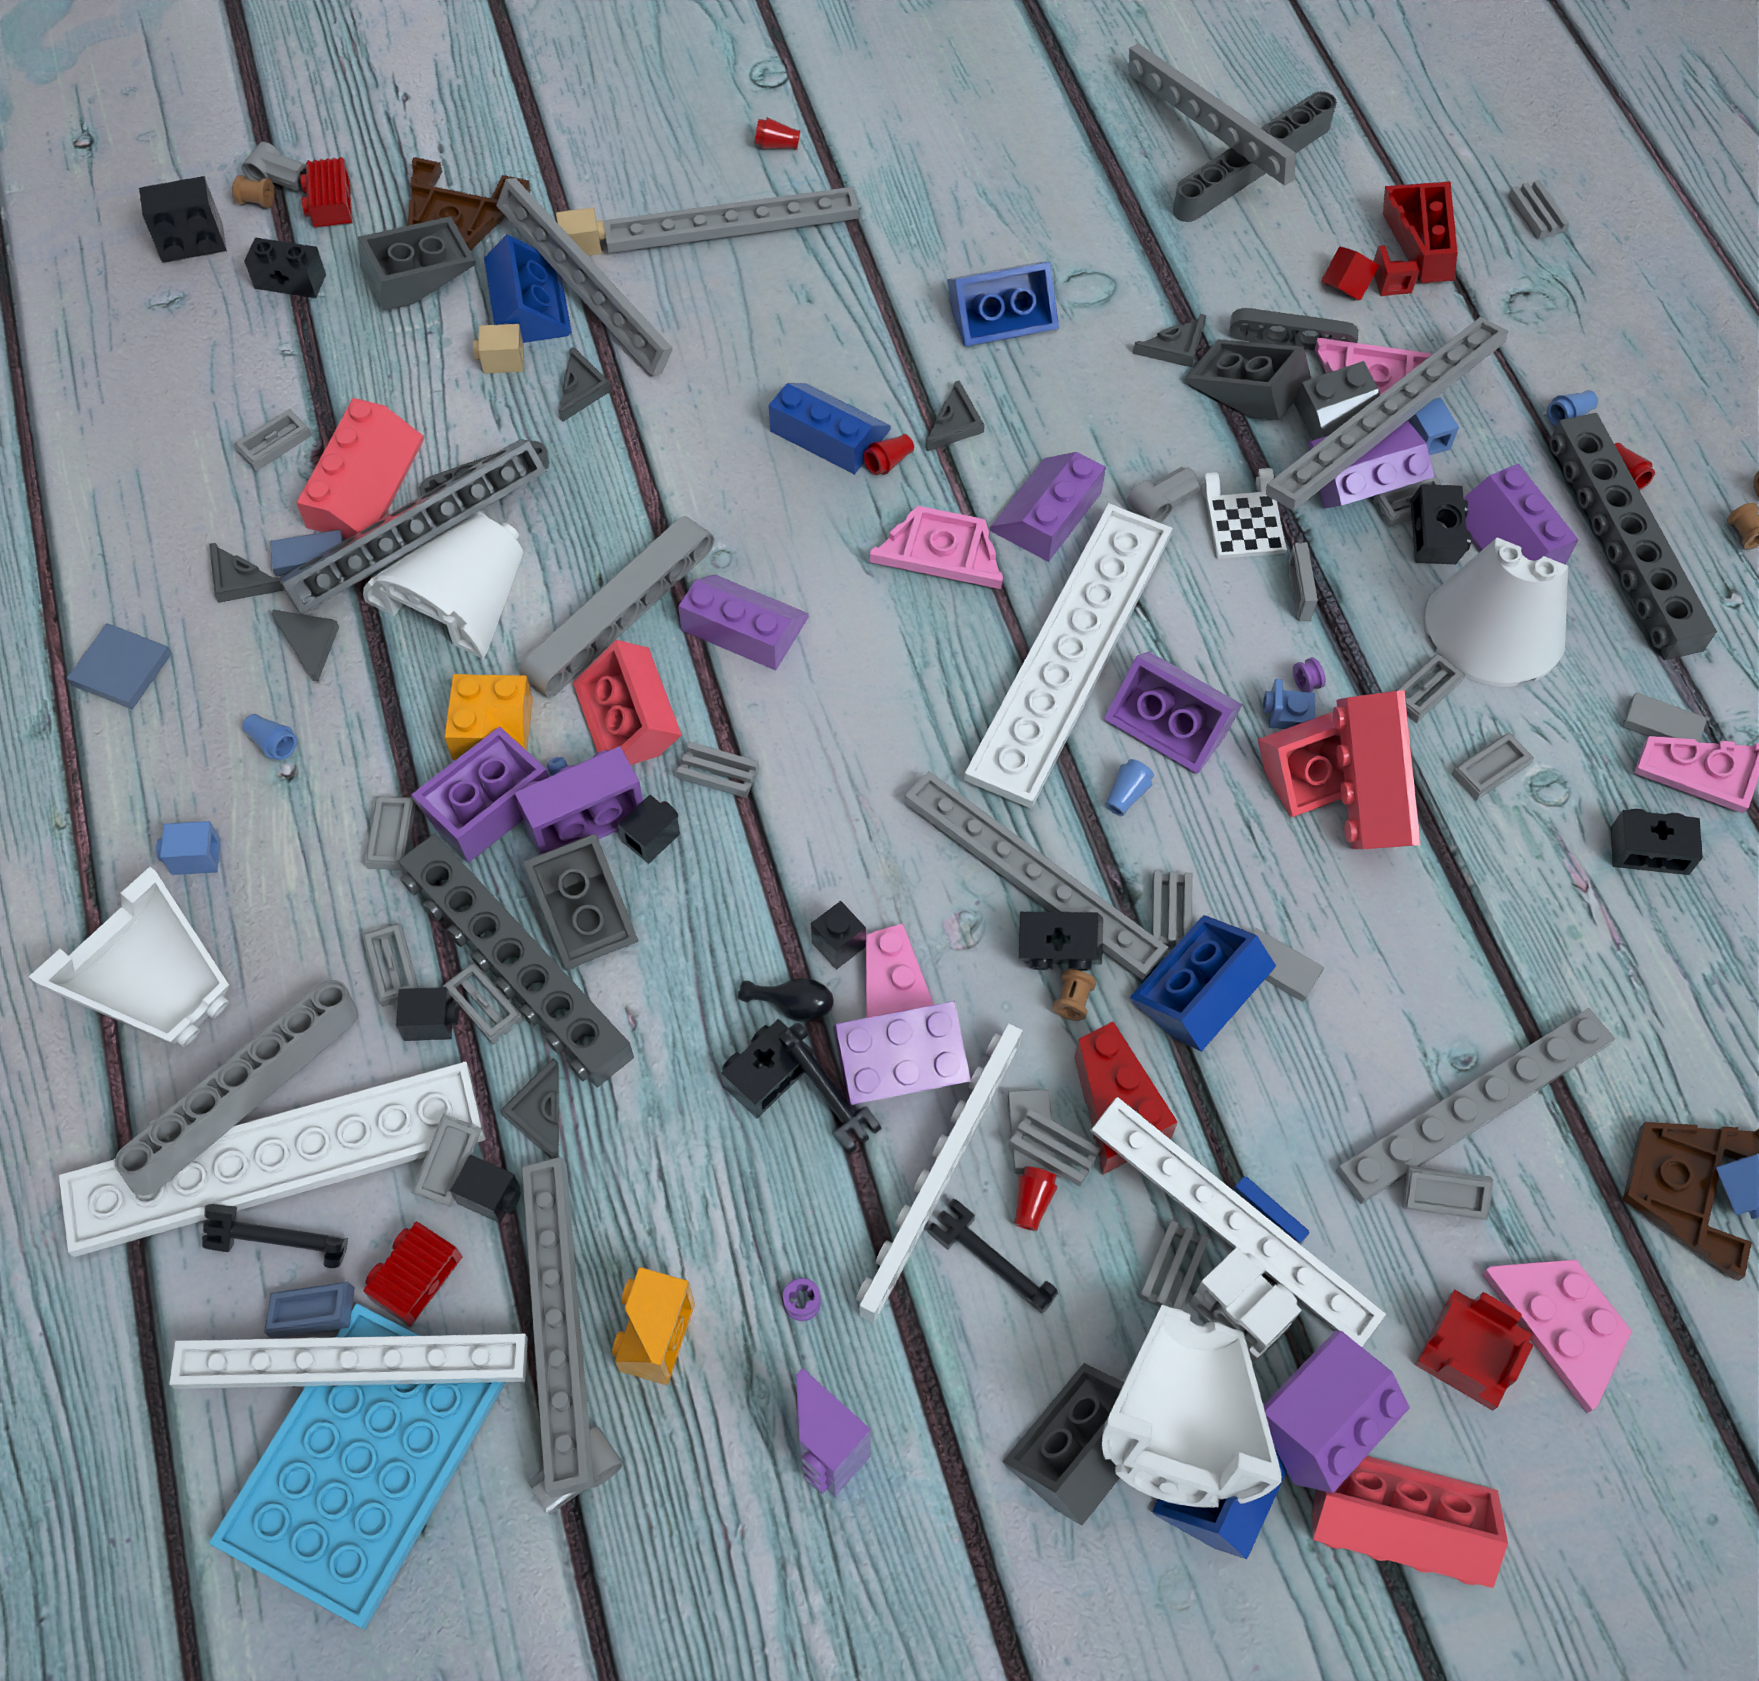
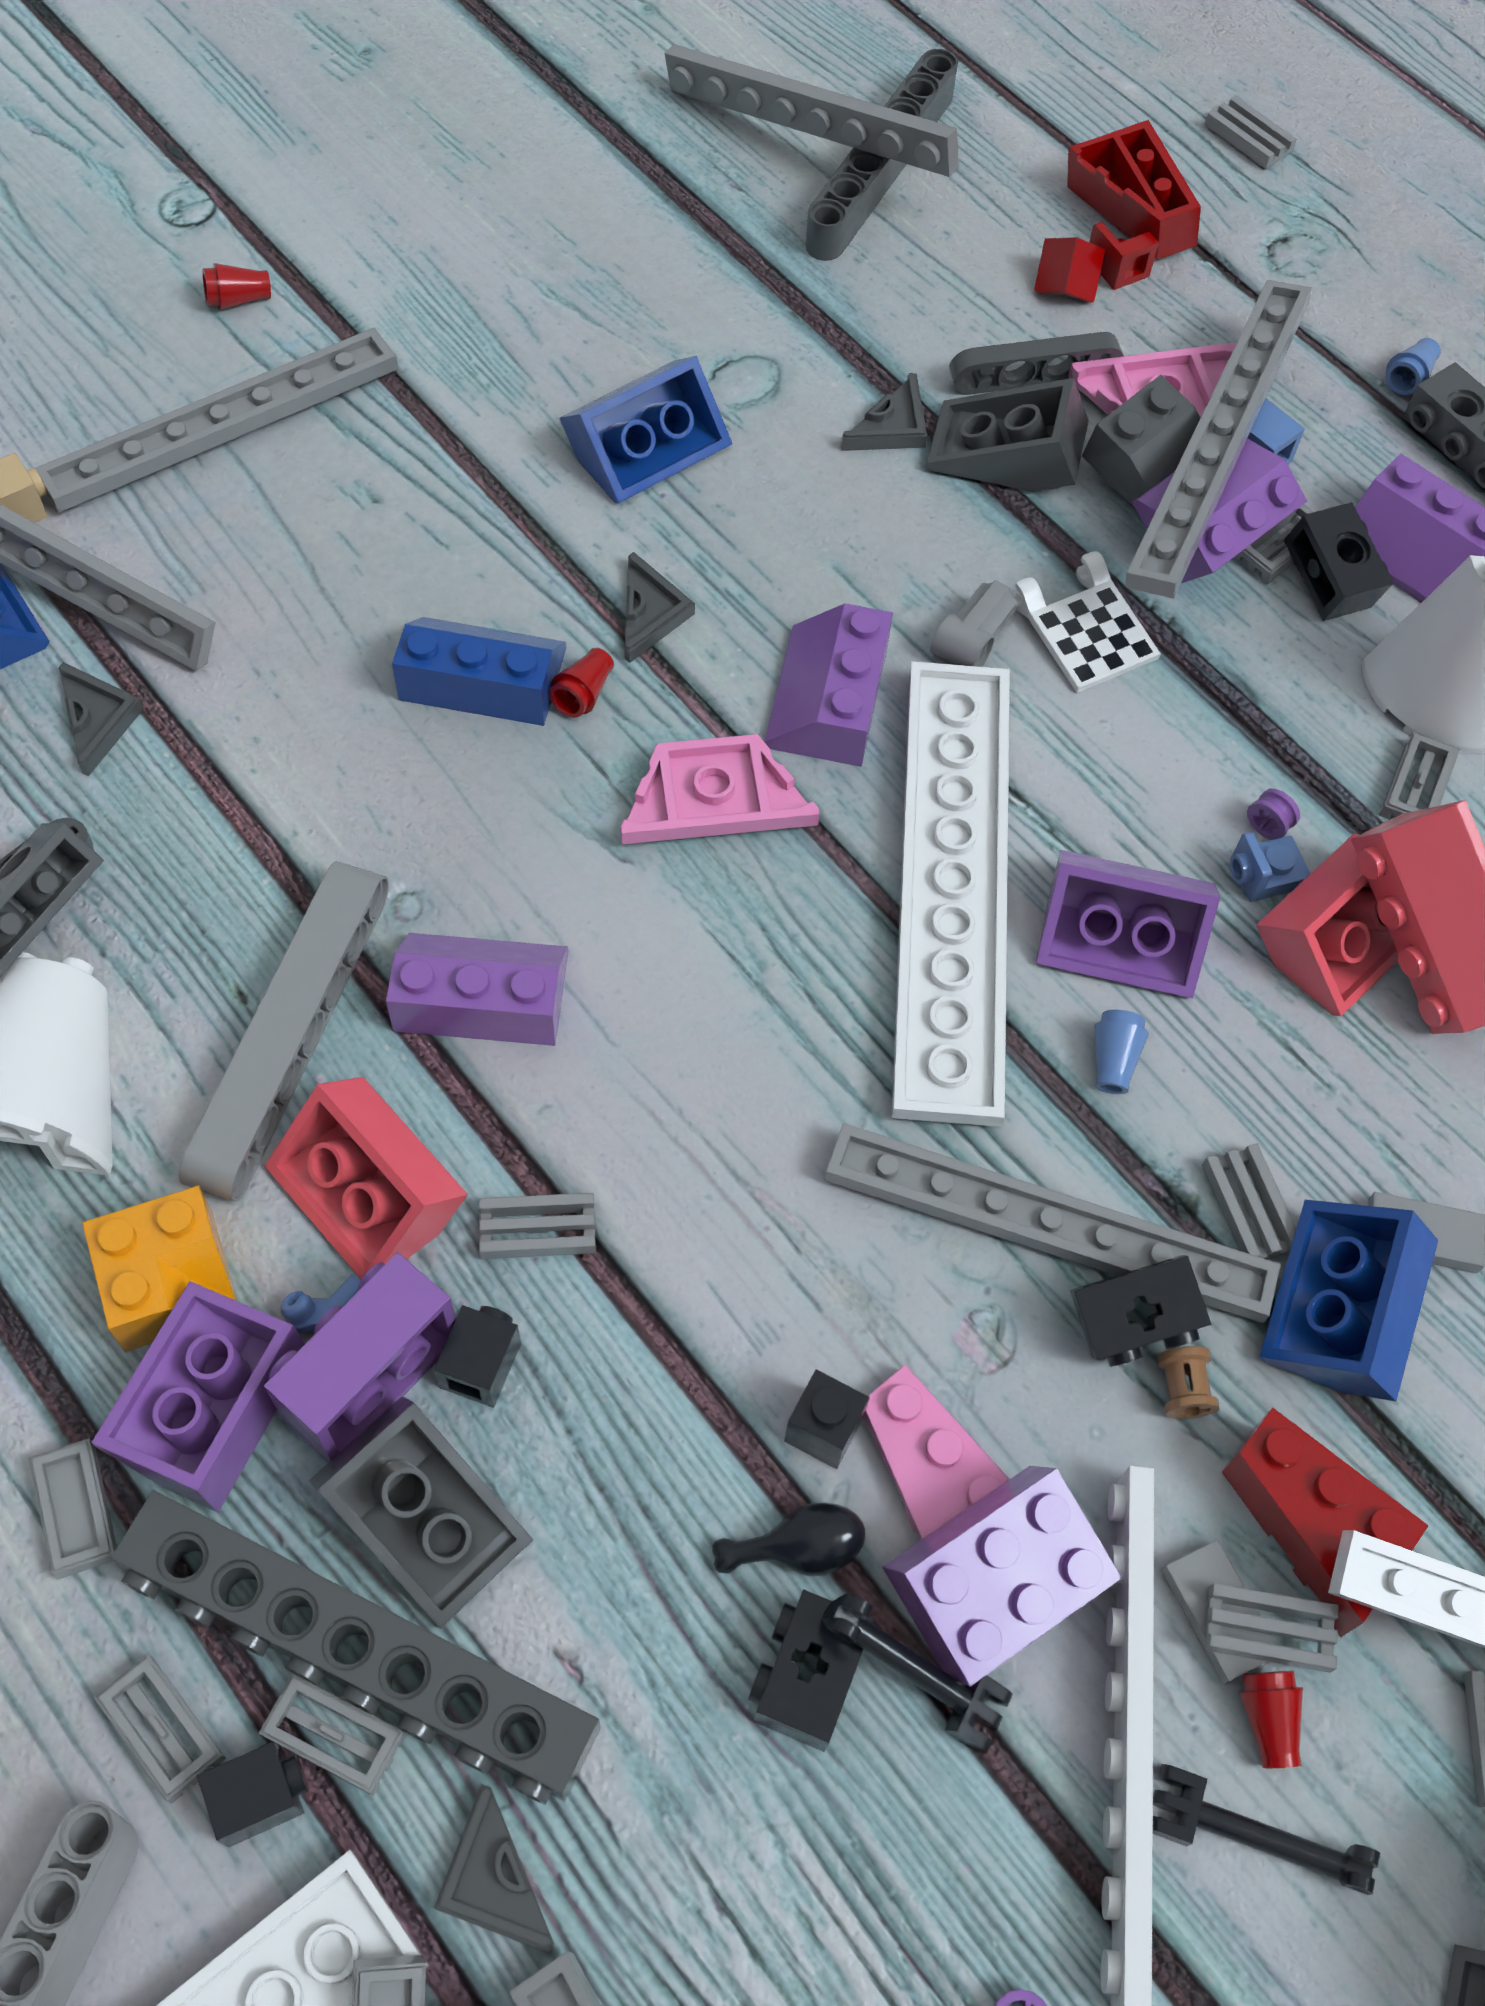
camera: 25 degrees left, 0 degrees up
(1302, 582) = (1206, 690): light grey tile -> none

